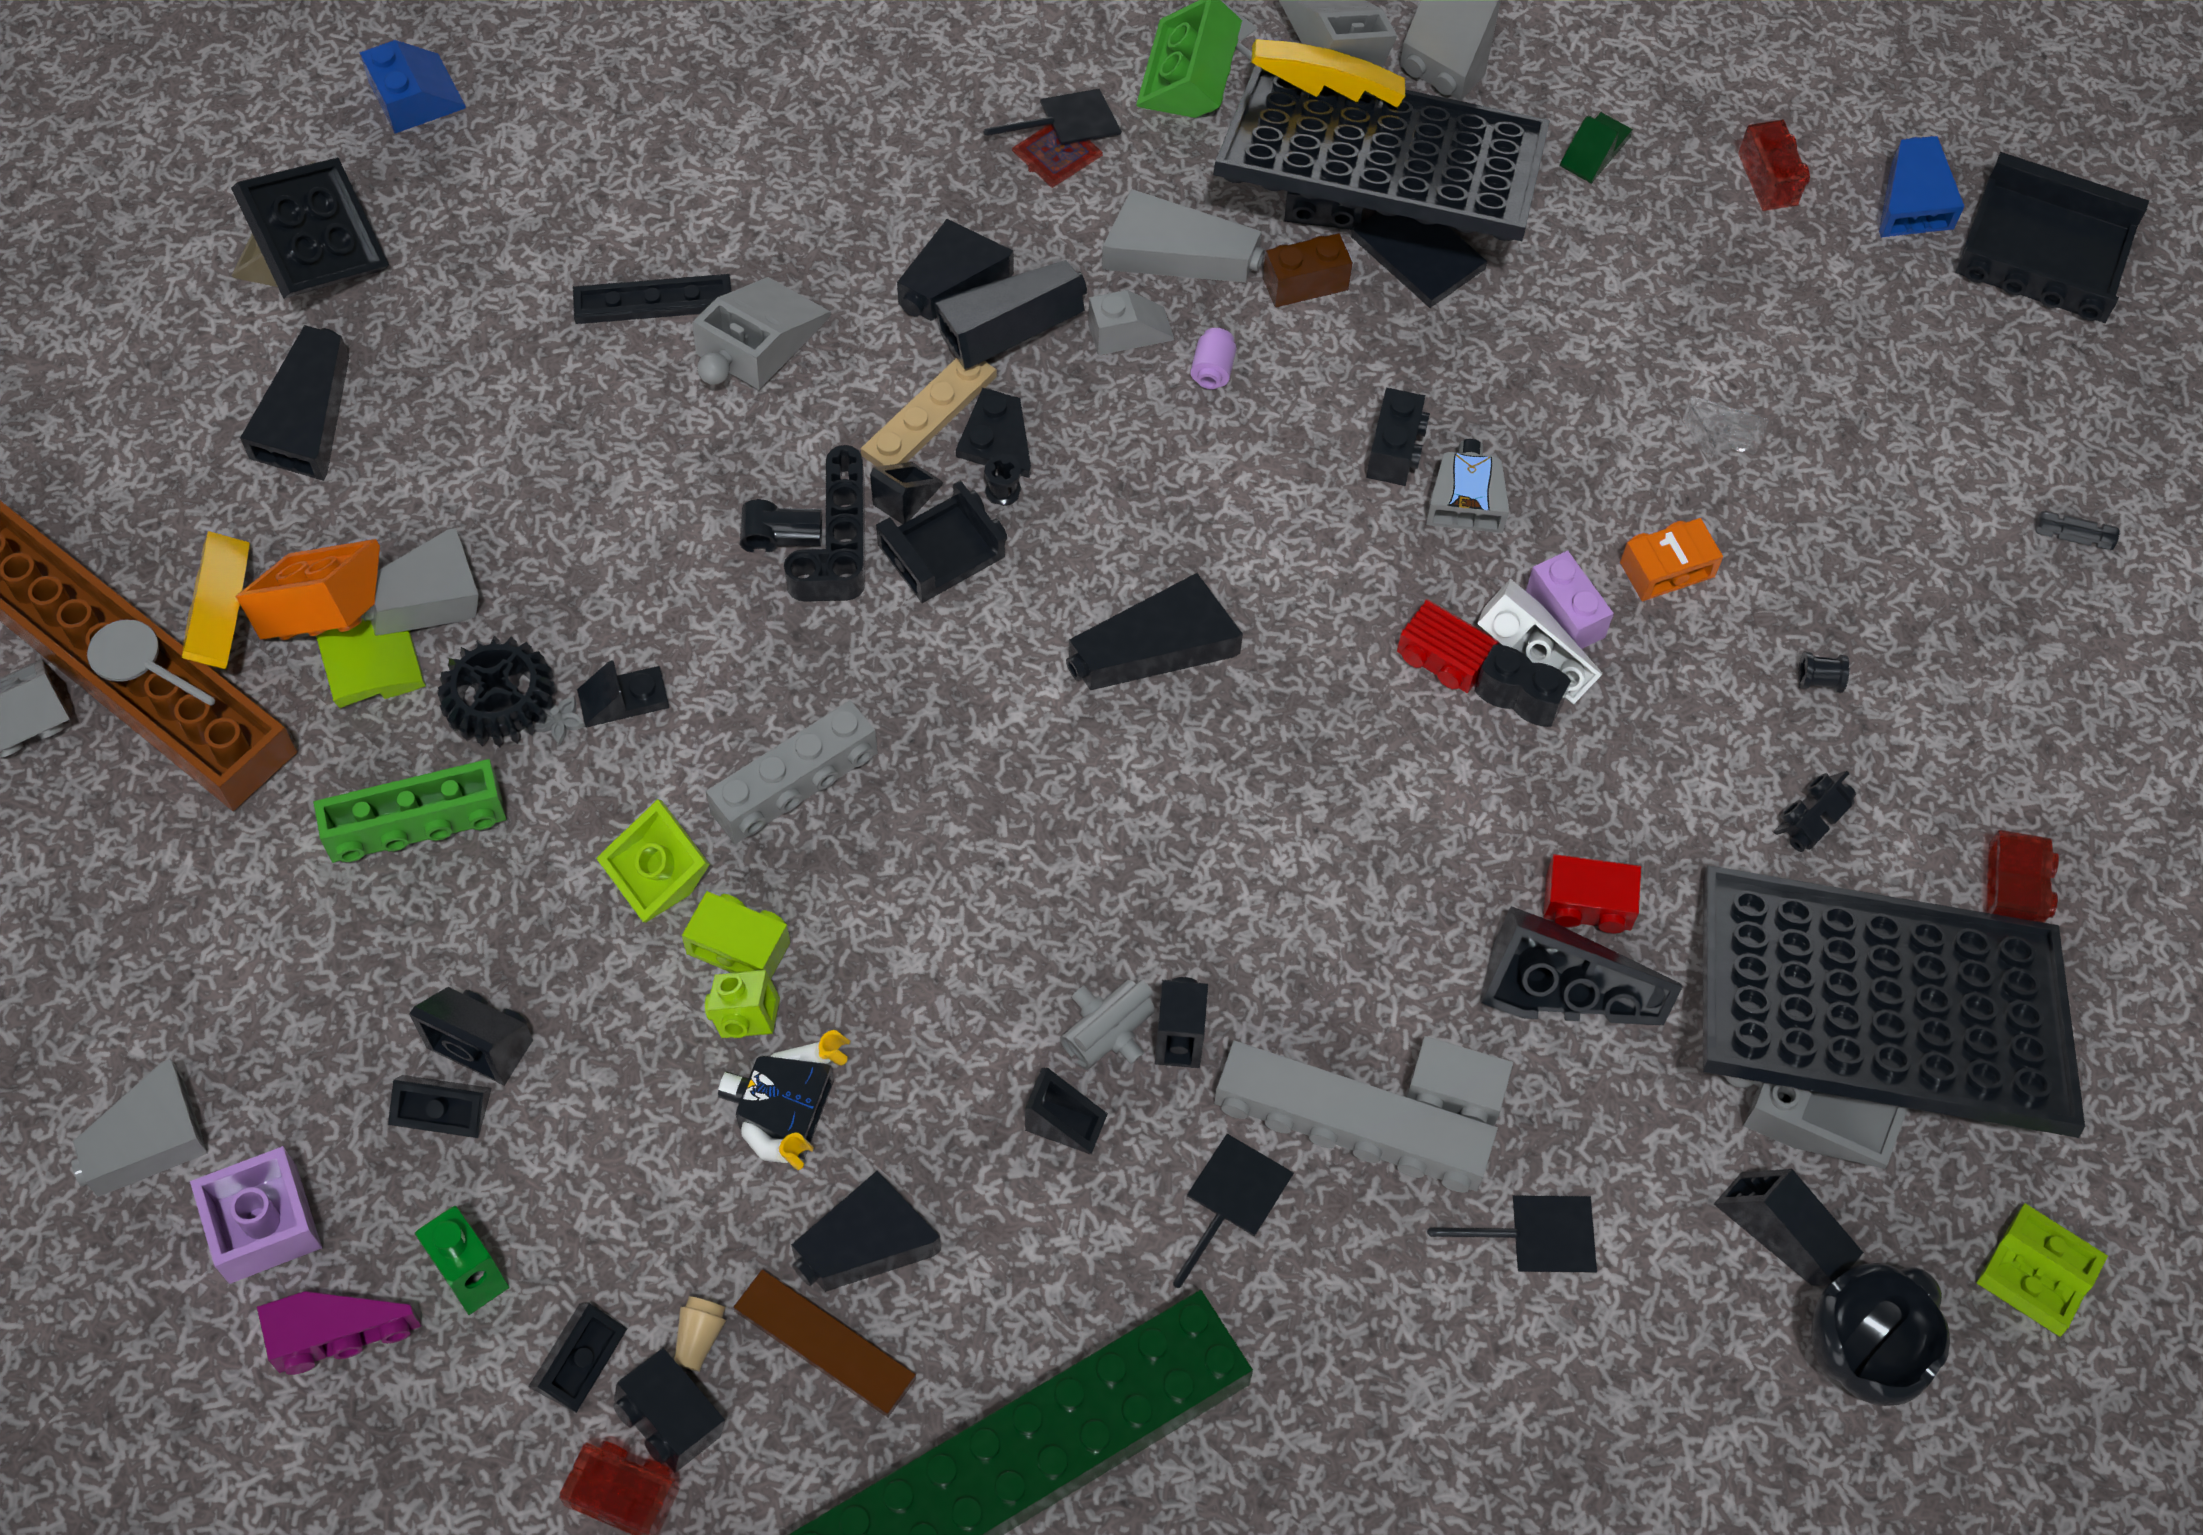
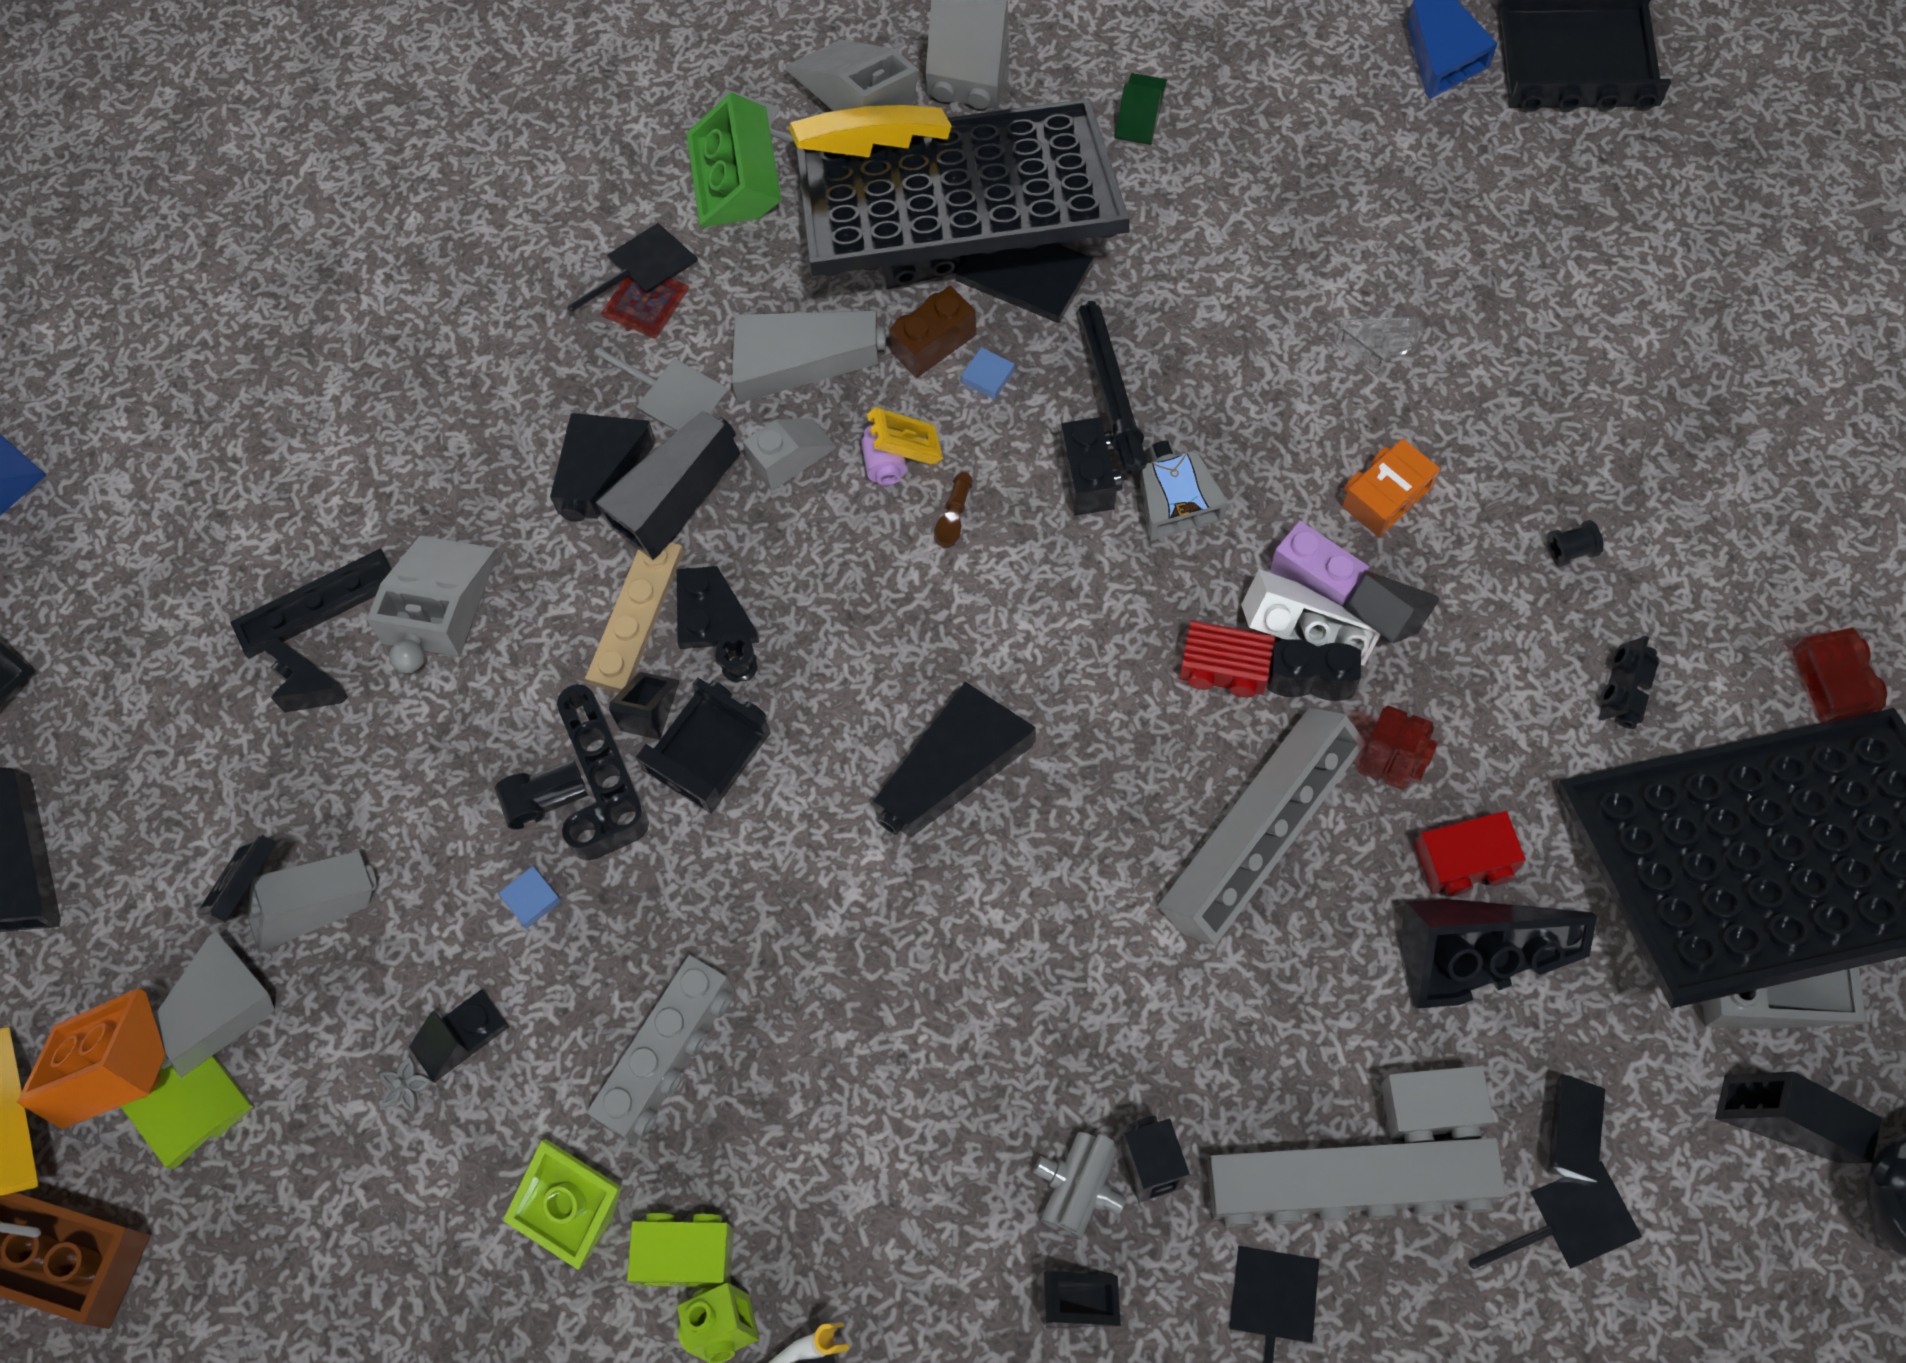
camera: 15 degrees left, 5 degrees up
(409, 811) = (291, 1259): bright green brick -> none
(490, 489) = (235, 880): none -> black tile
(498, 705) = (333, 1049): black gear -> none
(542, 533) = (307, 897): none -> light grey slope
(614, 360) = (304, 684): none -> black slope
(733, 609) = (529, 897): none -> medium blue tile
(1049, 239) = (676, 394): none -> light grey piece
(1239, 348) = (905, 442): none -> yellow tile
(1246, 443) = (949, 525): none -> reddish brown piece
(1342, 326) = (988, 373): none -> medium blue tile
(1412, 794) = (1262, 825): none -> light grey brick
(1442, 421) = (1126, 436): none -> black axle
(1565, 775) = (1398, 748): none -> clear red brick
(1579, 1158) = (1576, 1129): none -> black slope
(1619, 657) = (1390, 606): none -> black slope
(1773, 165) = (1309, 66): clear red brick -> none
(2077, 530) = (1729, 314): black axle -> none

